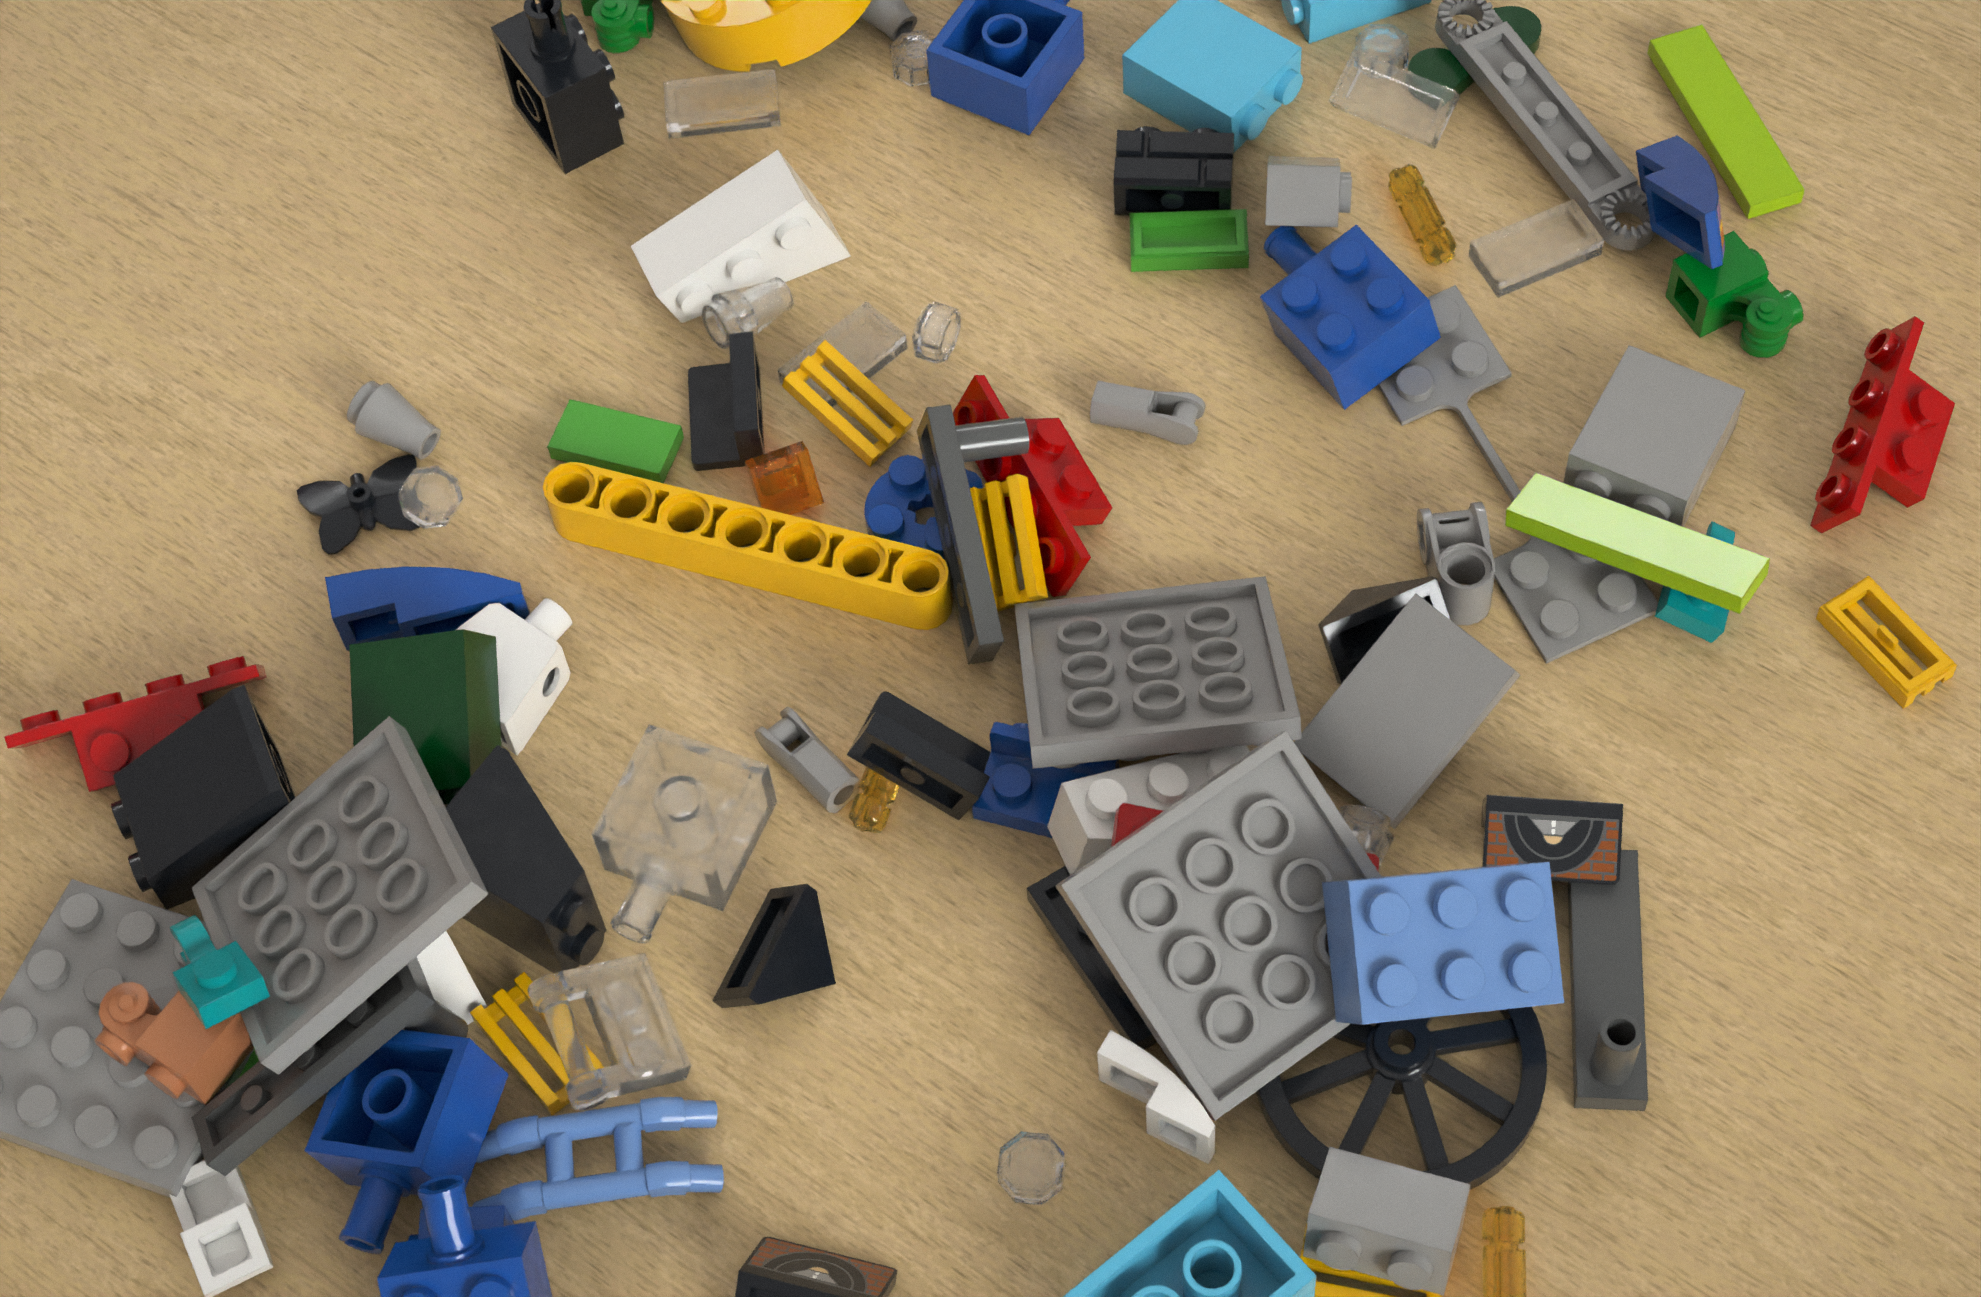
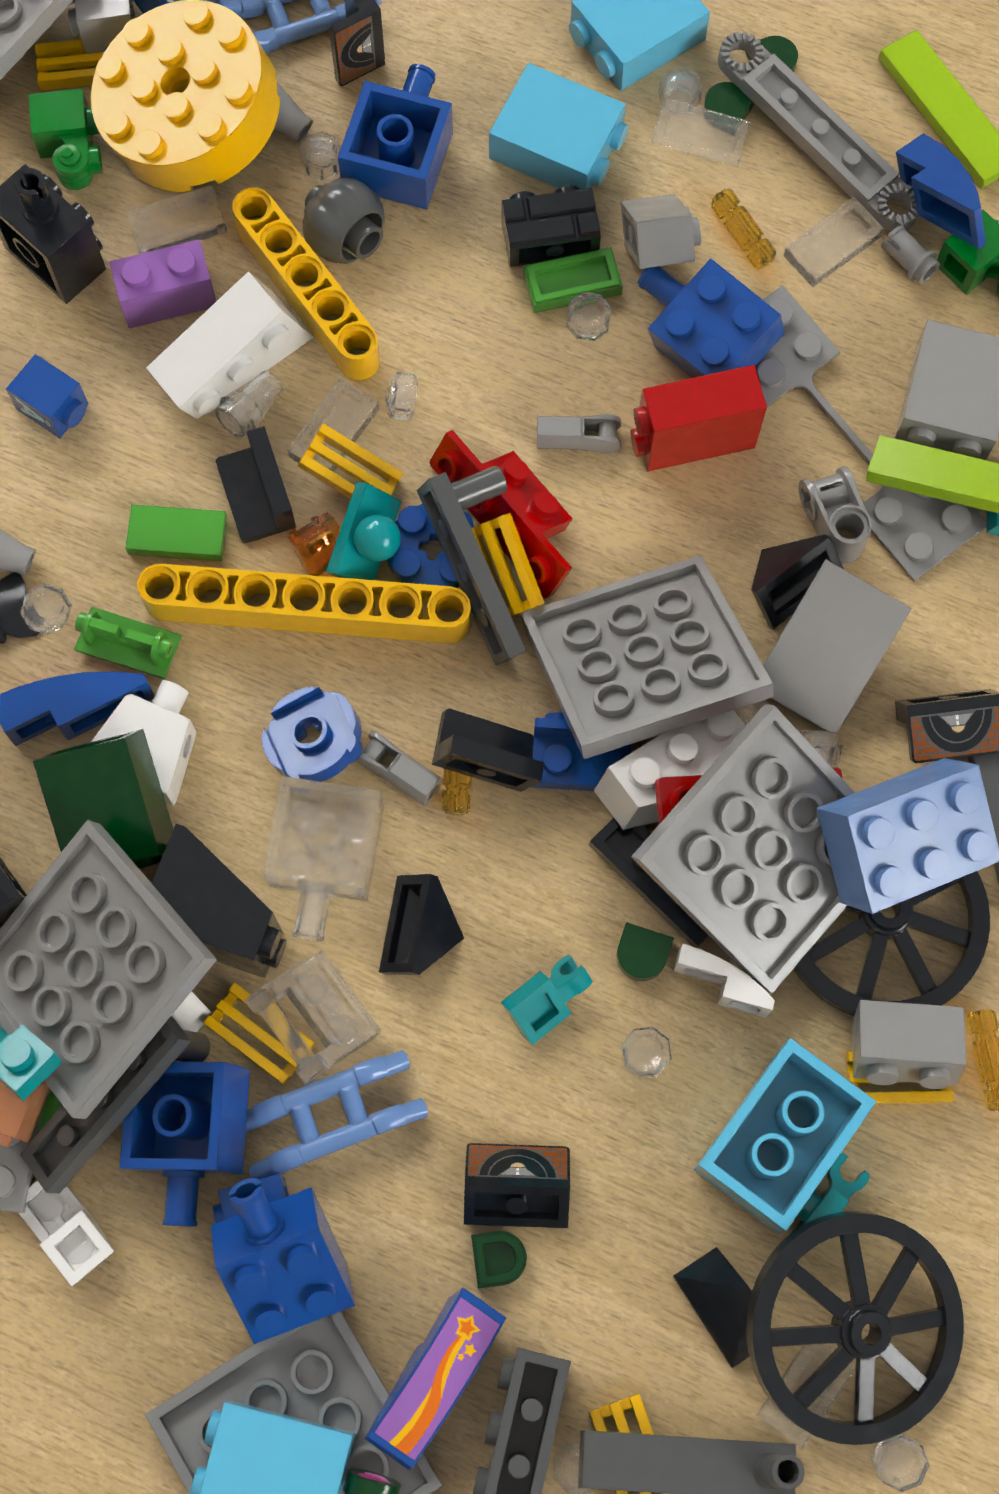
camera: 20 degrees left, 15 degrees up
(507, 263) = (48, 396): none -> blue brick
(514, 551) = (126, 642): none -> bright green hinge
(678, 160) = (163, 283): none -> medium lavender brick
(731, 713) = (333, 749): none -> plate
(843, 474) = (366, 534): none -> teal tile
(856, 192) = (301, 265): none -> yellow beam
(907, 1075) = (541, 1000): none -> teal plate
(920, 118) = (345, 215): none -> dark grey plant
(1062, 1044) = (642, 952): none -> dark green tile
(1196, 282) = (588, 316): none -> clear tile
(1298, 410) = (698, 418): none -> red brick
(1641, 286) = (911, 255): none -> light grey pin

